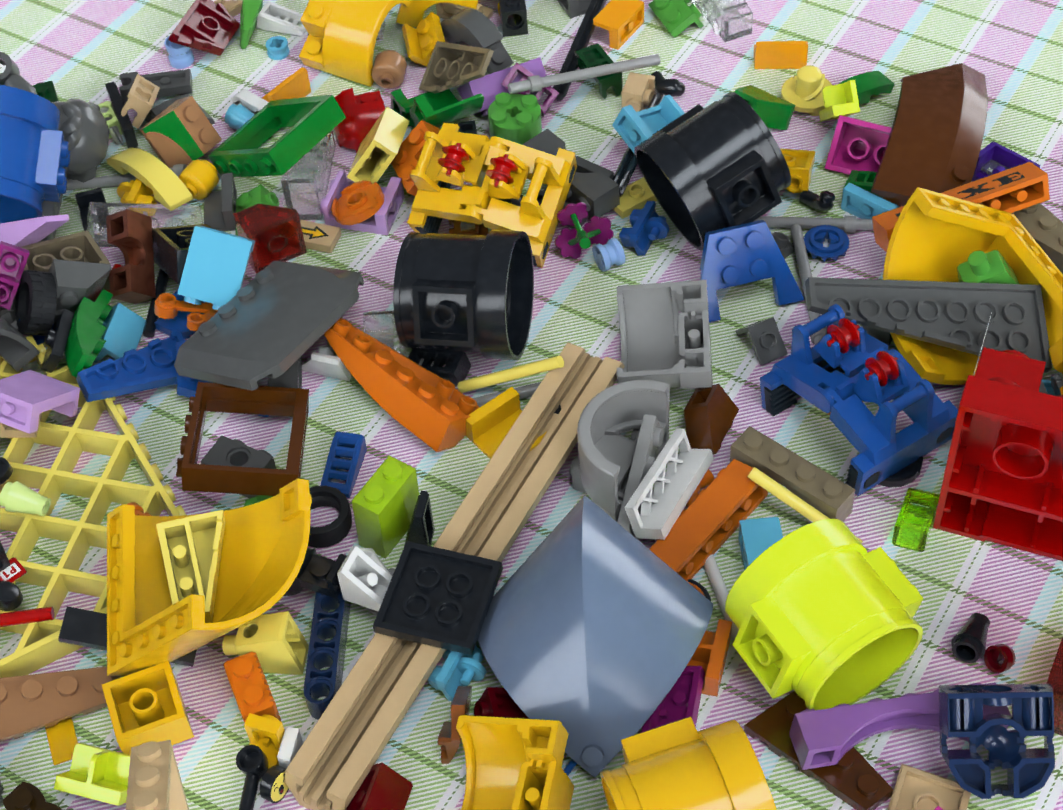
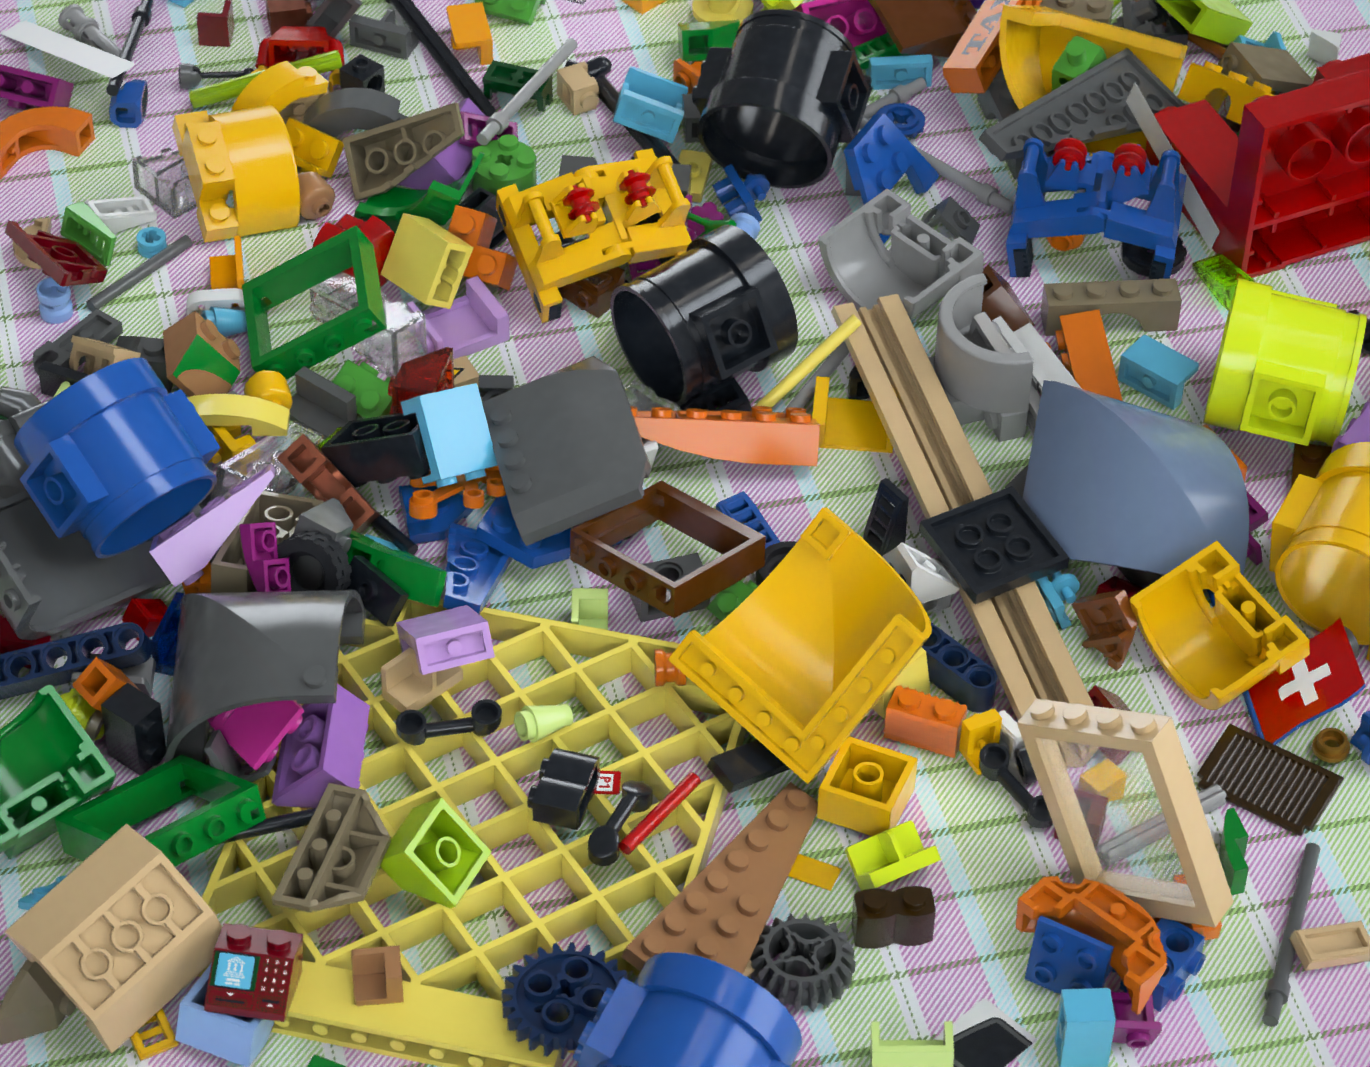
camera: 50 degrees left, 5 degrees down
(165, 451) = (590, 607): none -> yellowish green panel
(193, 556) = (784, 654): light yellow wedge -> none
(248, 62) = (139, 273): none -> dark grey bar
(323, 258) = (495, 385): none -> dark grey tile
(357, 202) = (473, 332): orange tile -> none
(386, 506) = (855, 501): lime brick -> none
(786, 496) = (1151, 318): light yellow bar -> none

